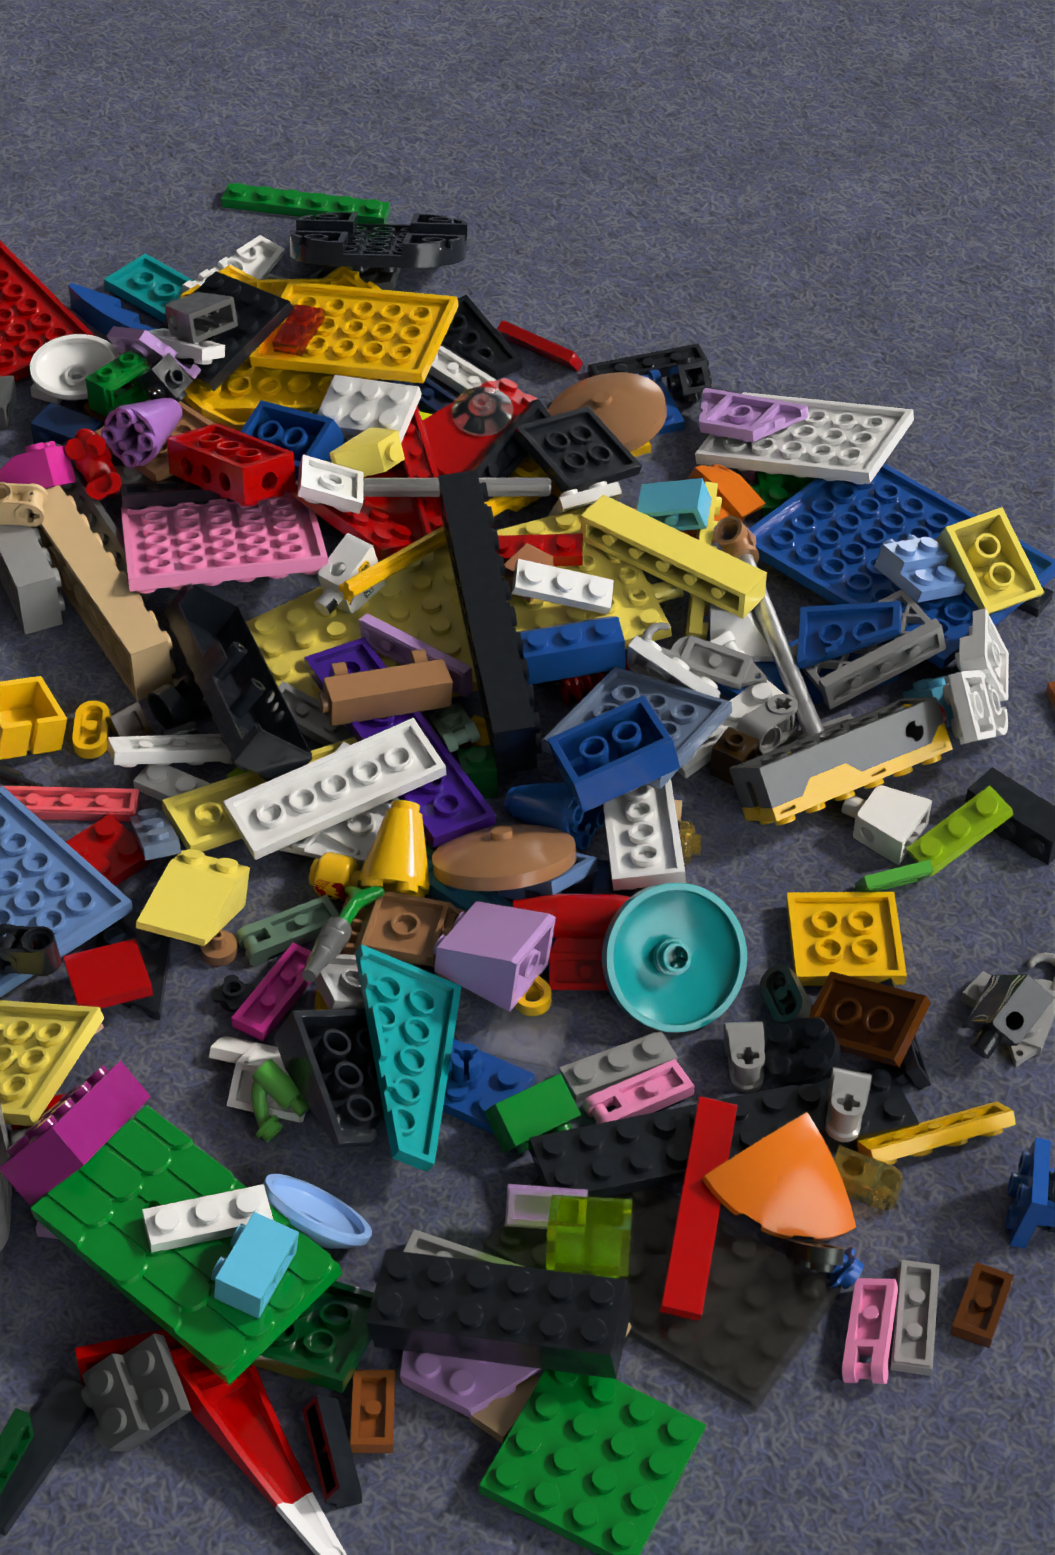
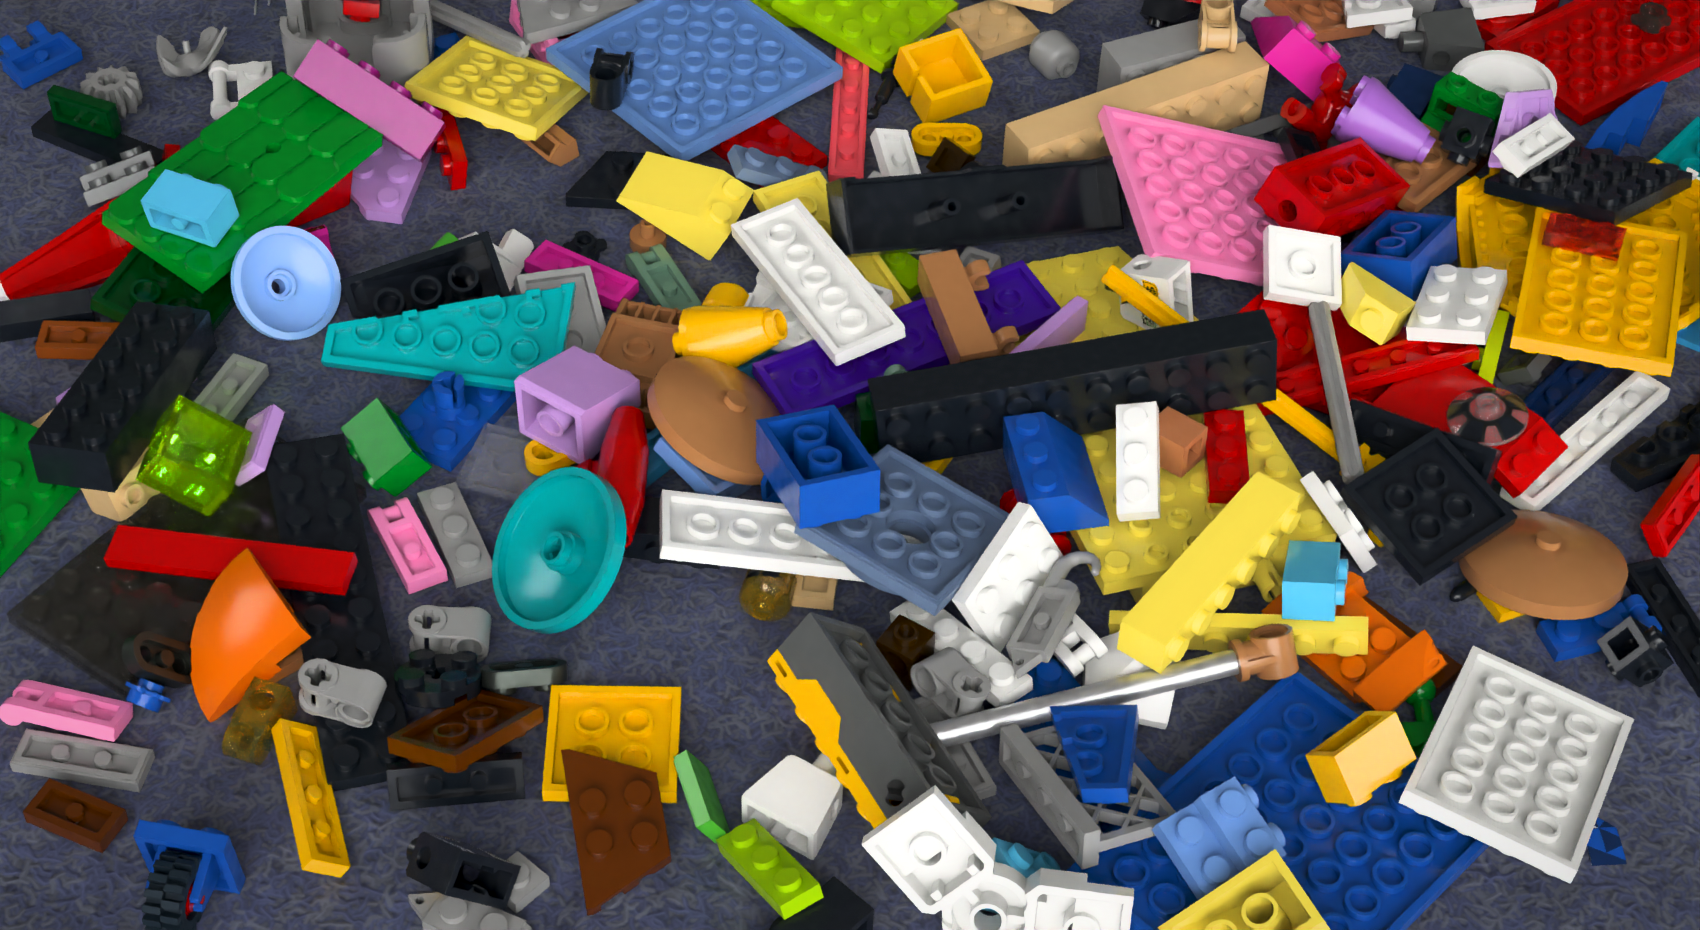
camera: 90 degrees right, 0 degrees up
(108, 975) = (595, 148): red tile -> none
(190, 318) = (1569, 144): dark grey torso -> none
(203, 1217) = (251, 180): white plate -> none
(337, 930) = (611, 281): dark grey piece -> none
(746, 415) = (1546, 690): lavender wing -> none
(836, 496) = (1361, 758): none -> yellow brick
(935, 927) = (614, 824): none -> reddish brown wing

